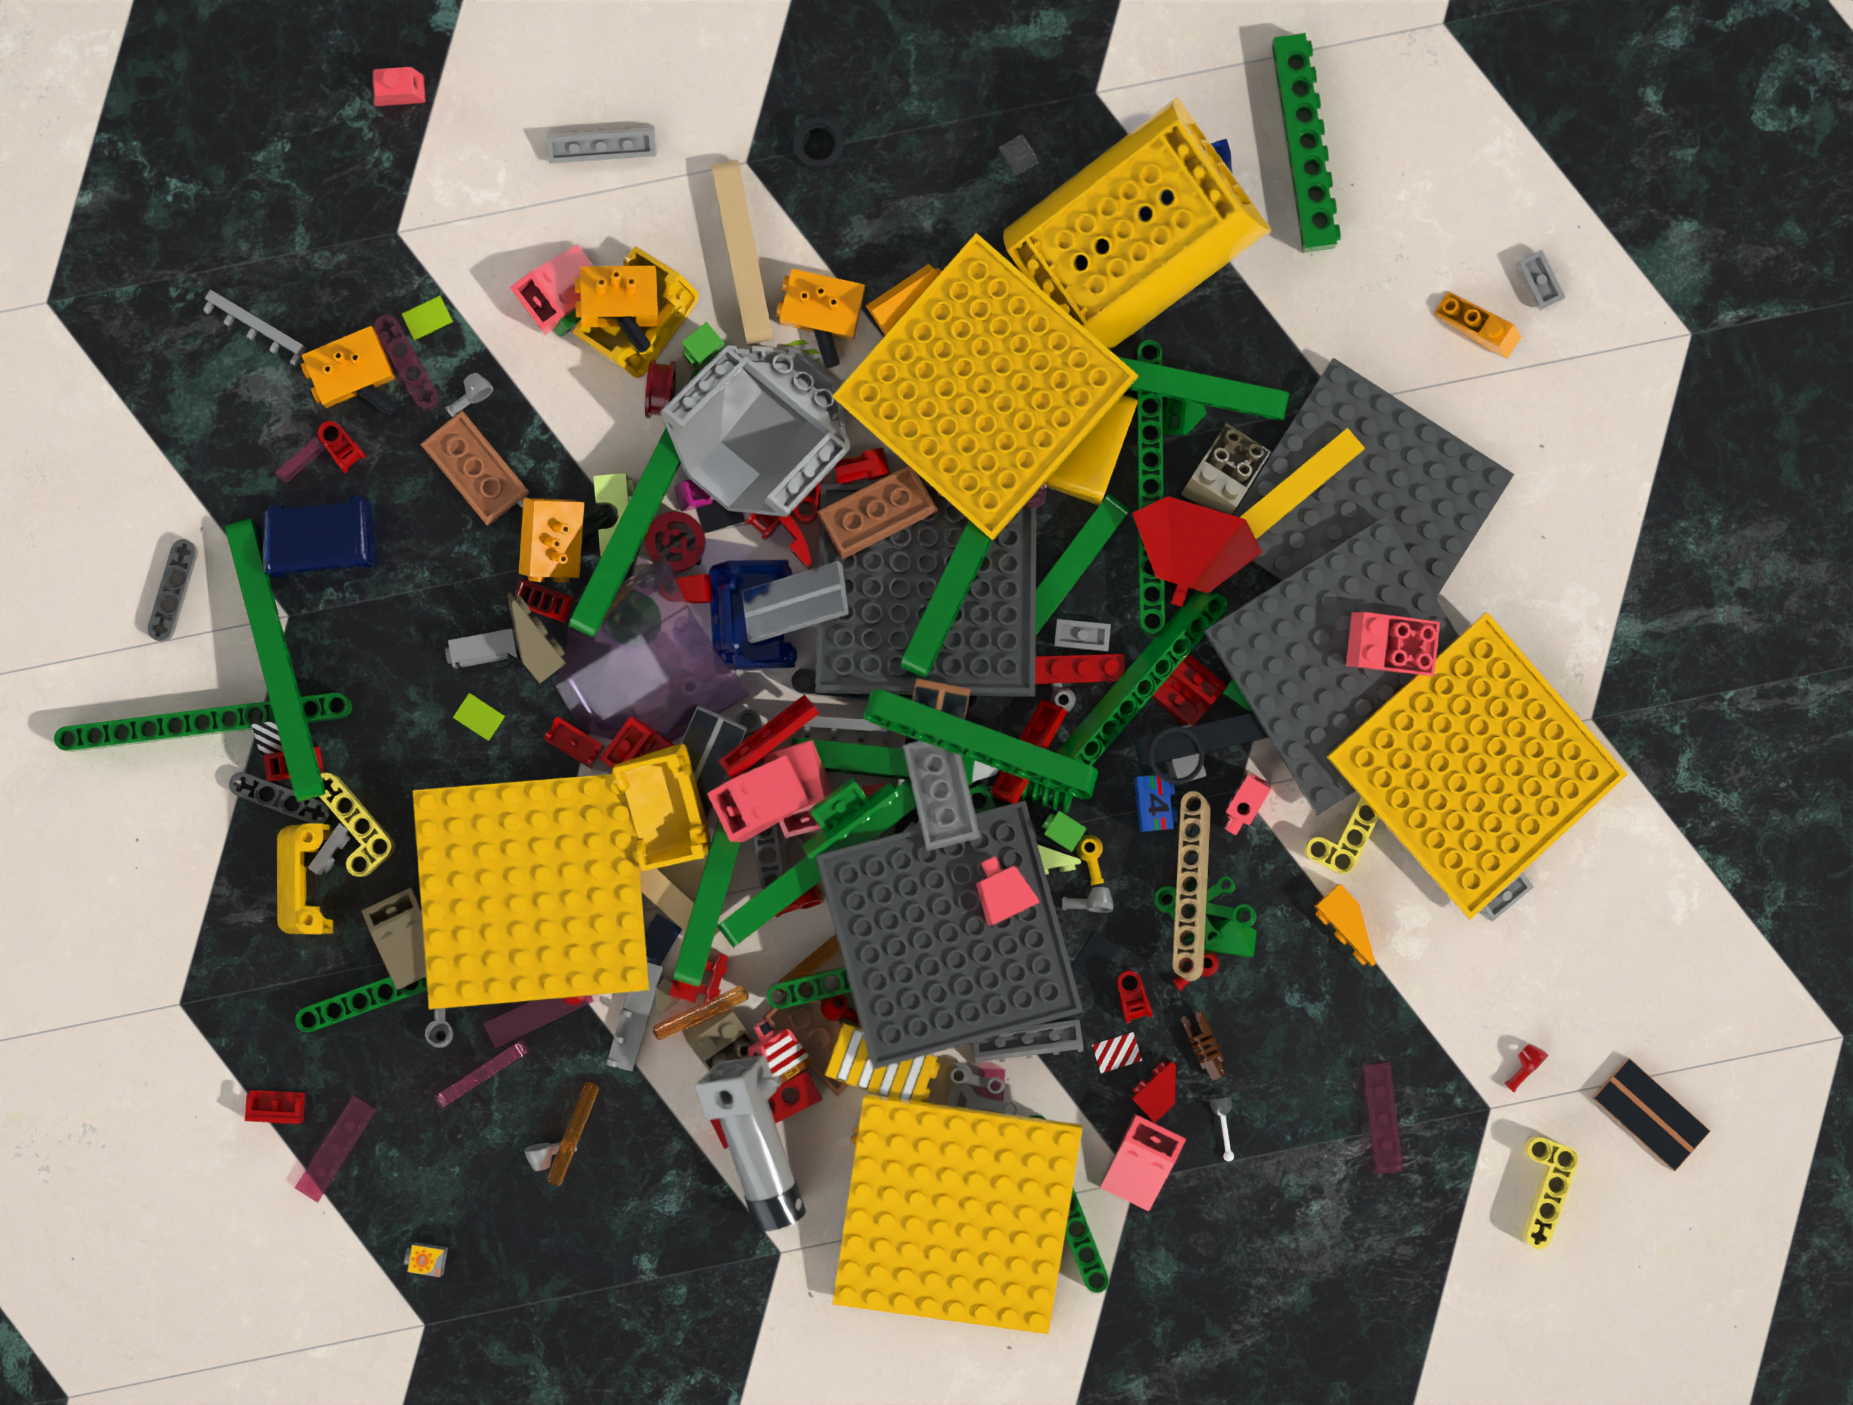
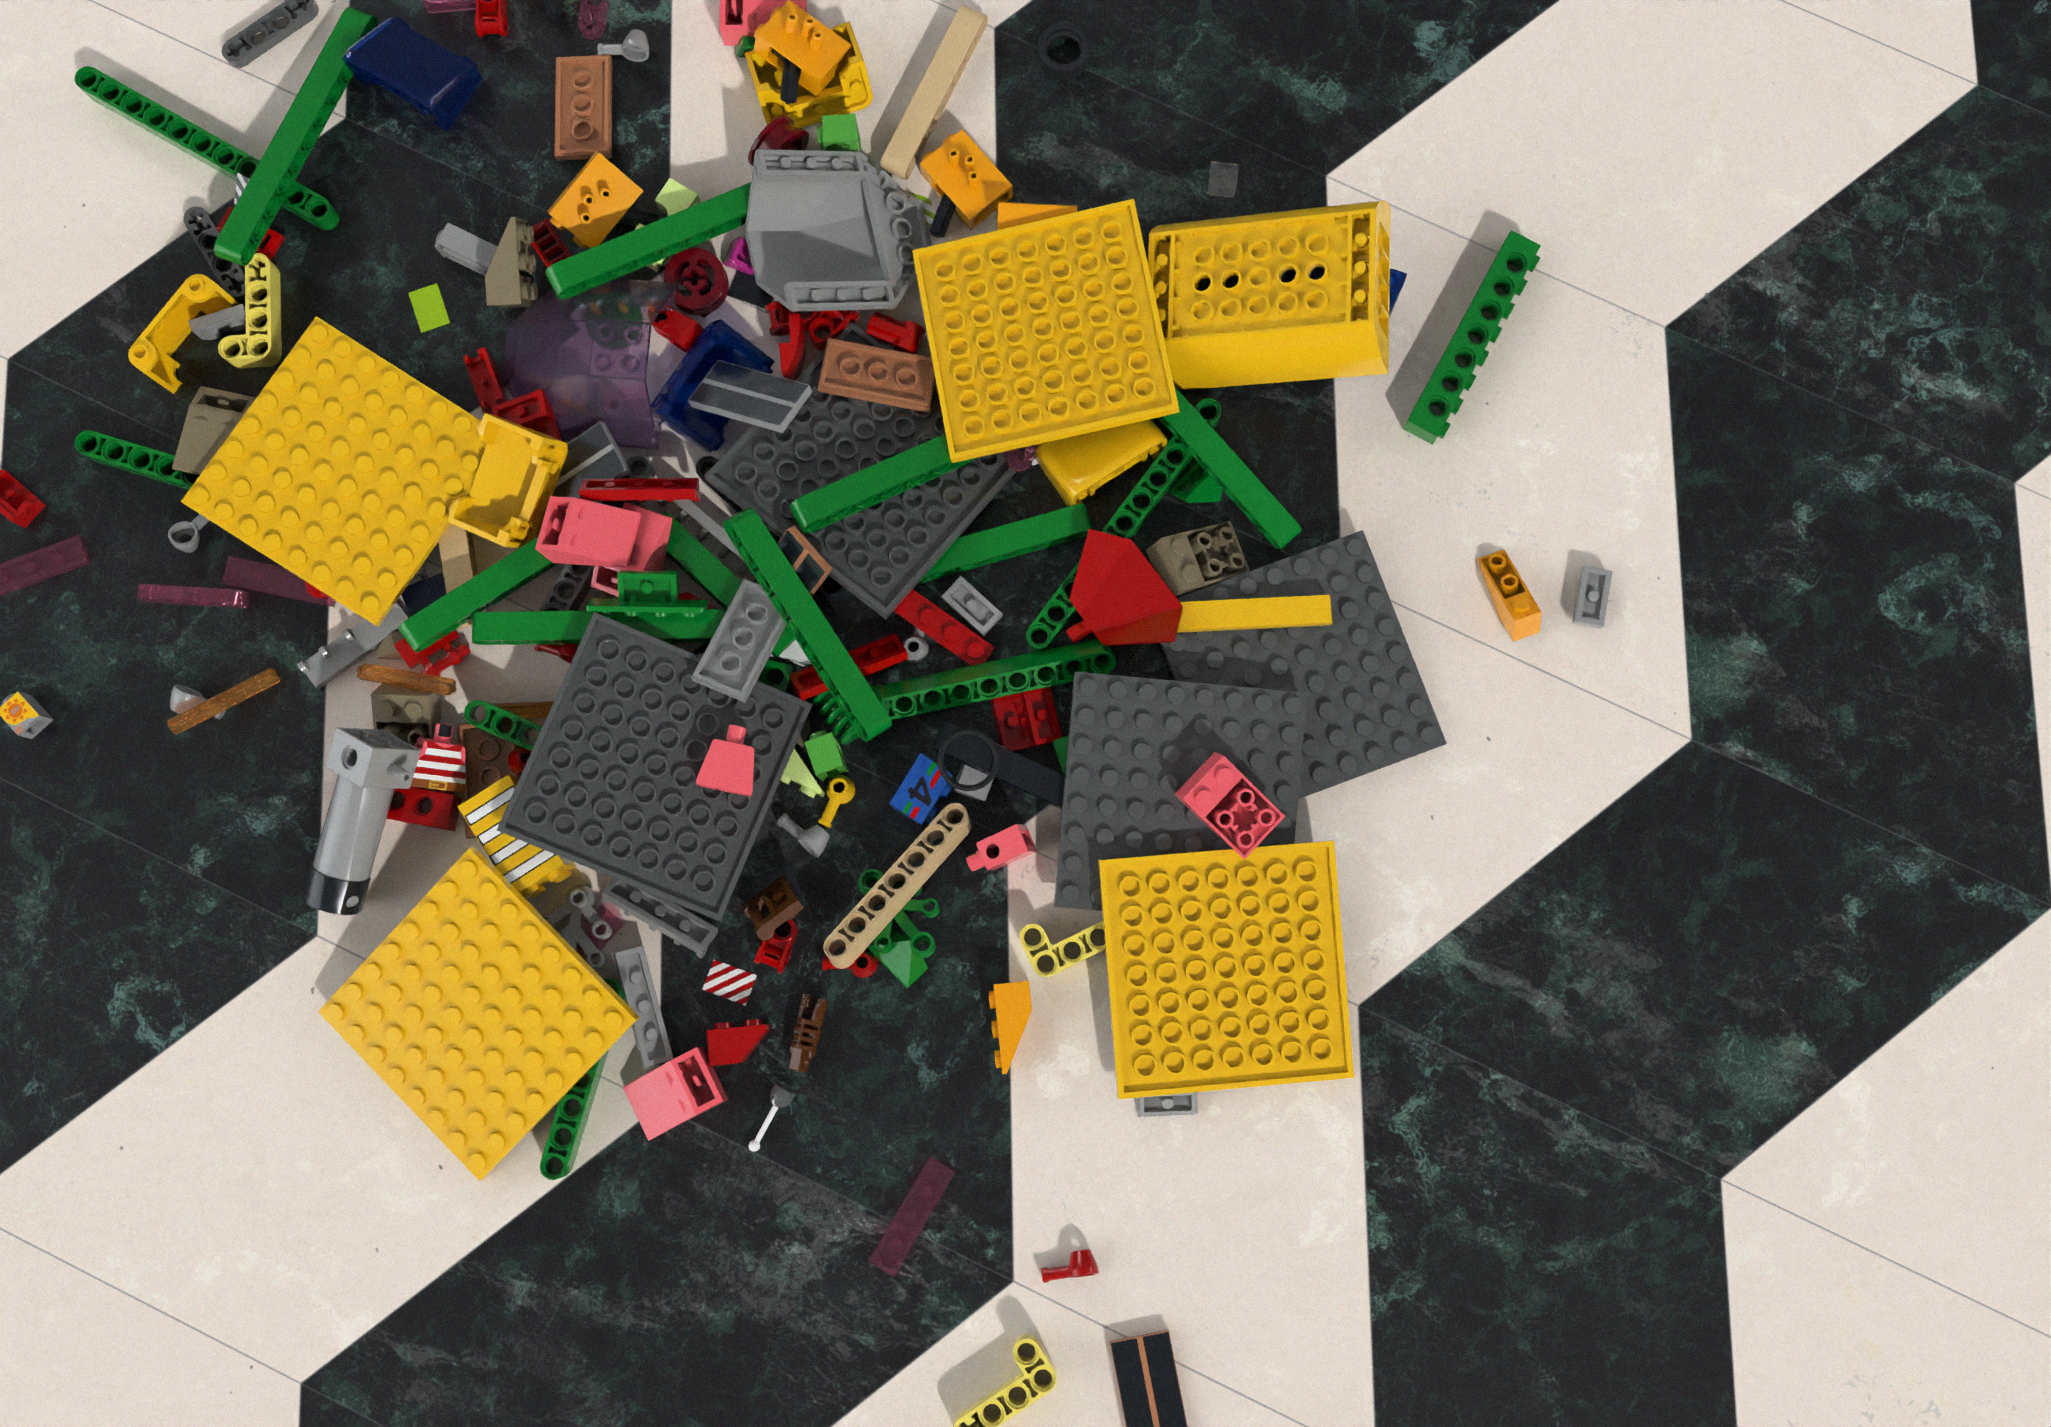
camera: 40 degrees right, 5 degrees down
(1058, 1107) = (642, 998): none -> light grey hinge
(1113, 964) = (781, 903): none -> reddish brown plate

